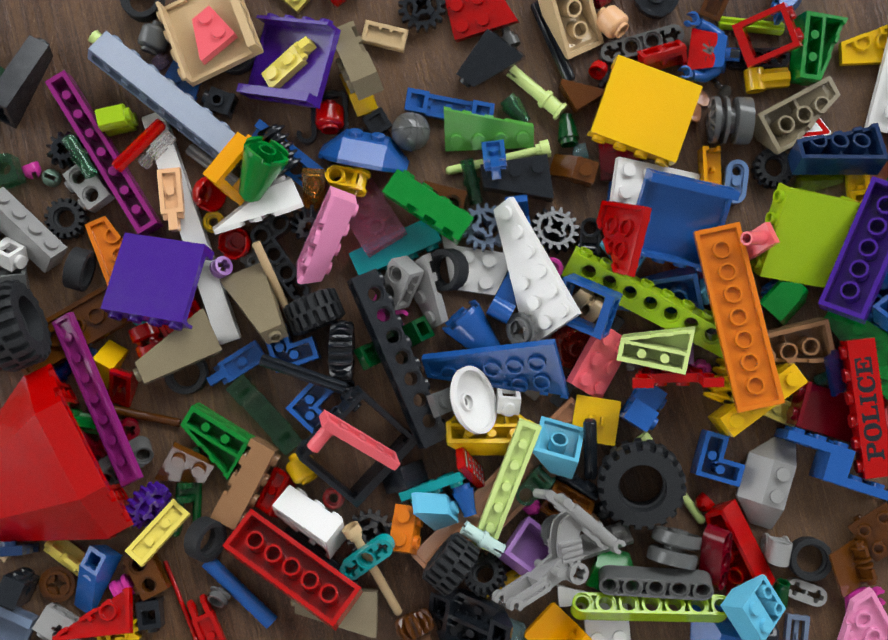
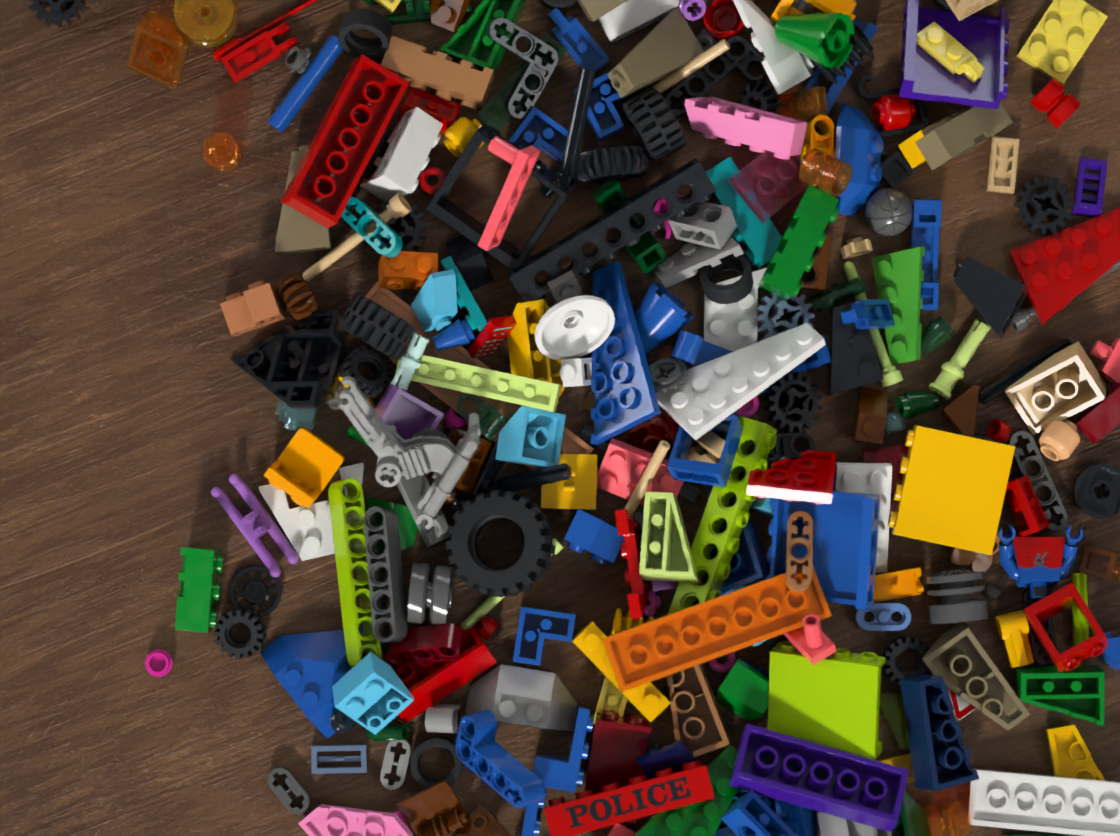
camera: 75 degrees right, 0 degrees up
(252, 403) = (533, 65): none -> black beam
(375, 173) = (825, 171): none -> clear orange wheel
(435, 162) = (856, 247): none -> tan plate
(605, 358) = (647, 477): none -> tan piece
(678, 232) = (807, 532): none -> medium nougat beam
(823, 512) = (494, 764): none -> blue beam

